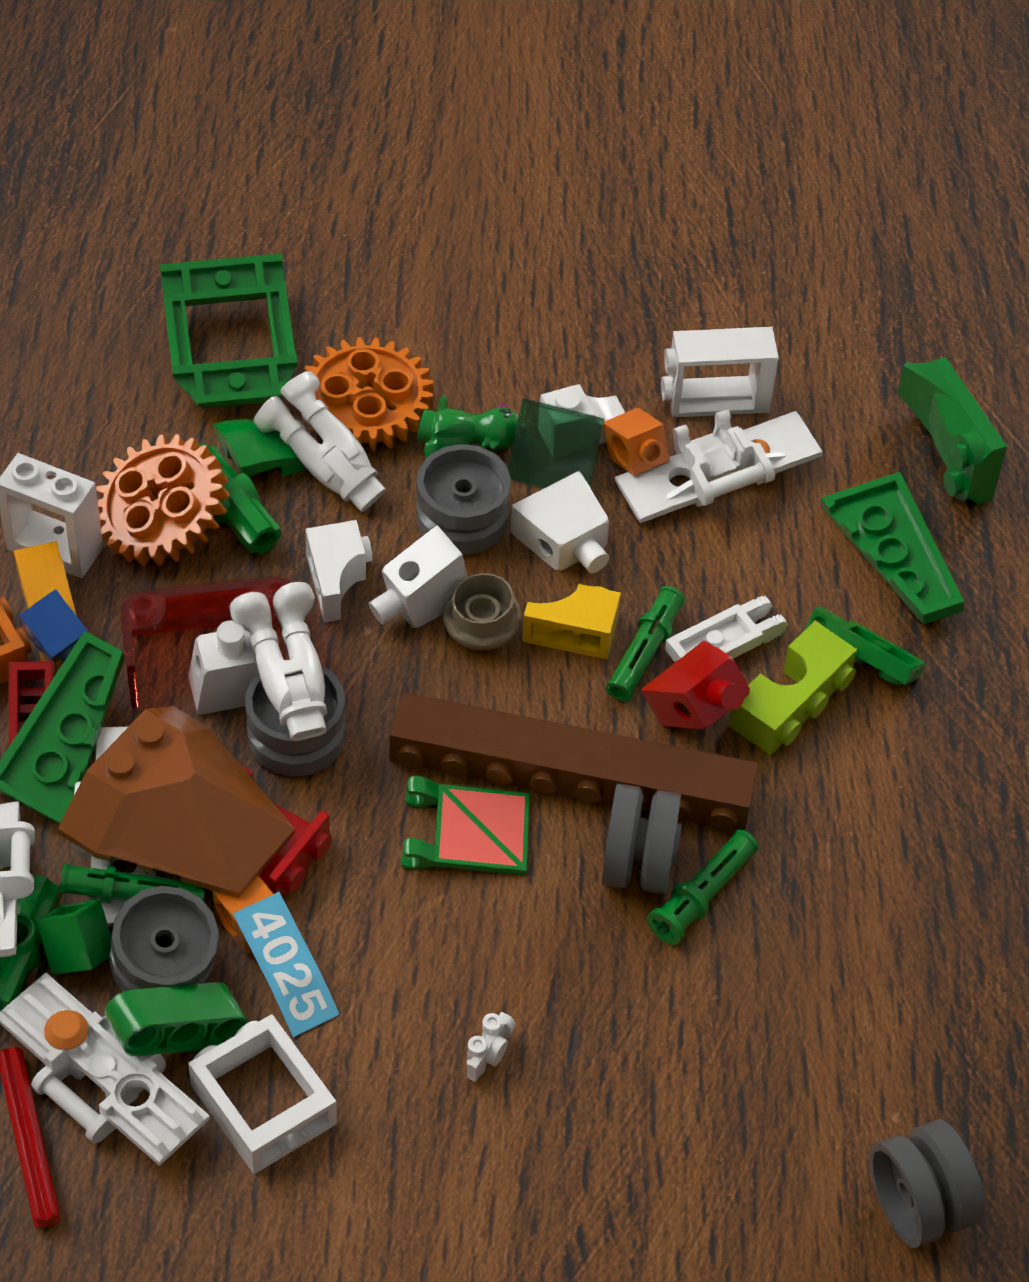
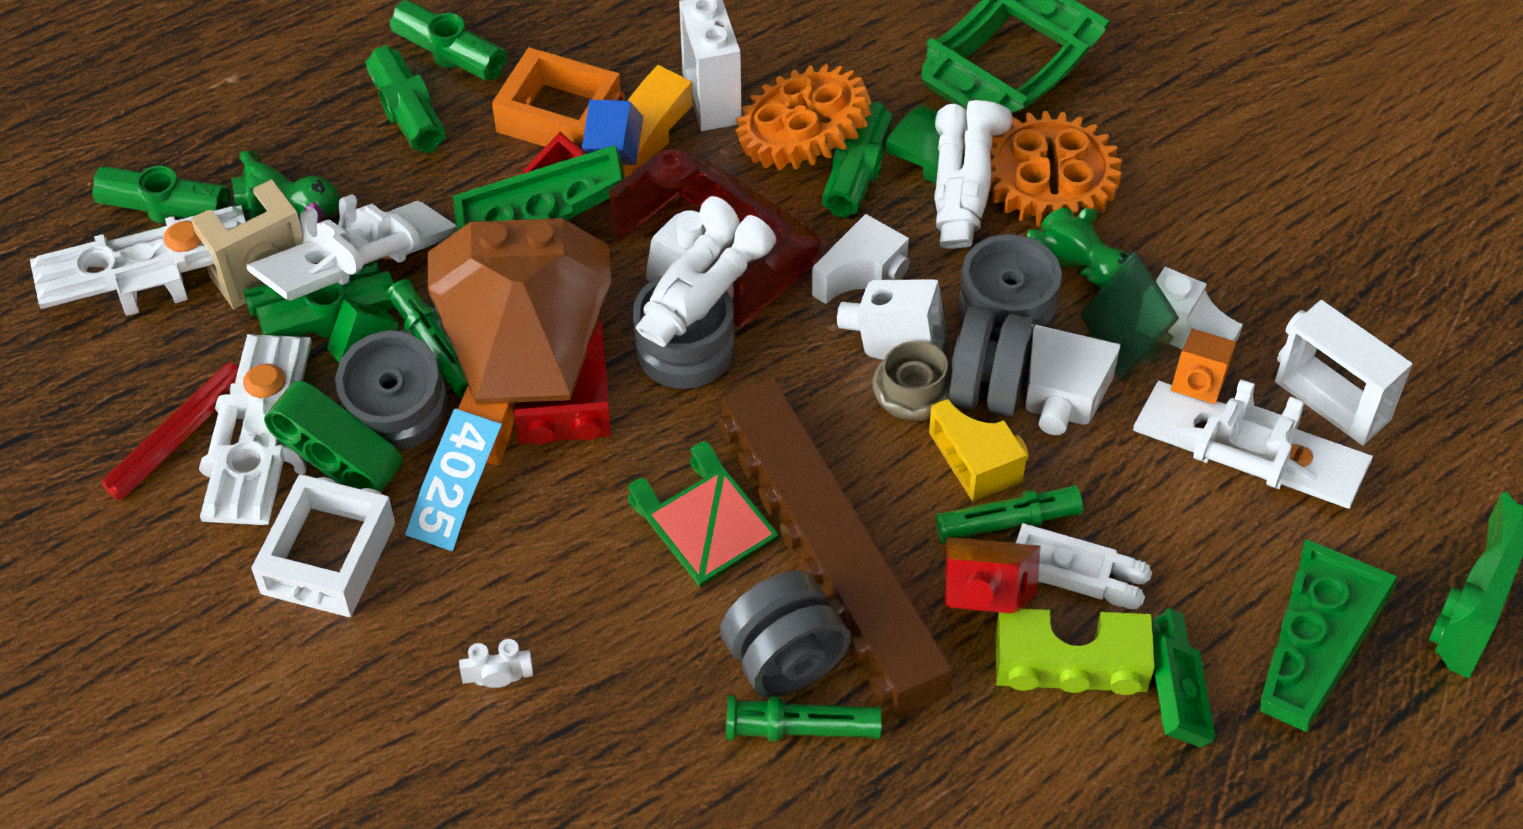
camera: 55 degrees right, 0 degrees up
(524, 549) = (984, 360): none -> dark grey wheel

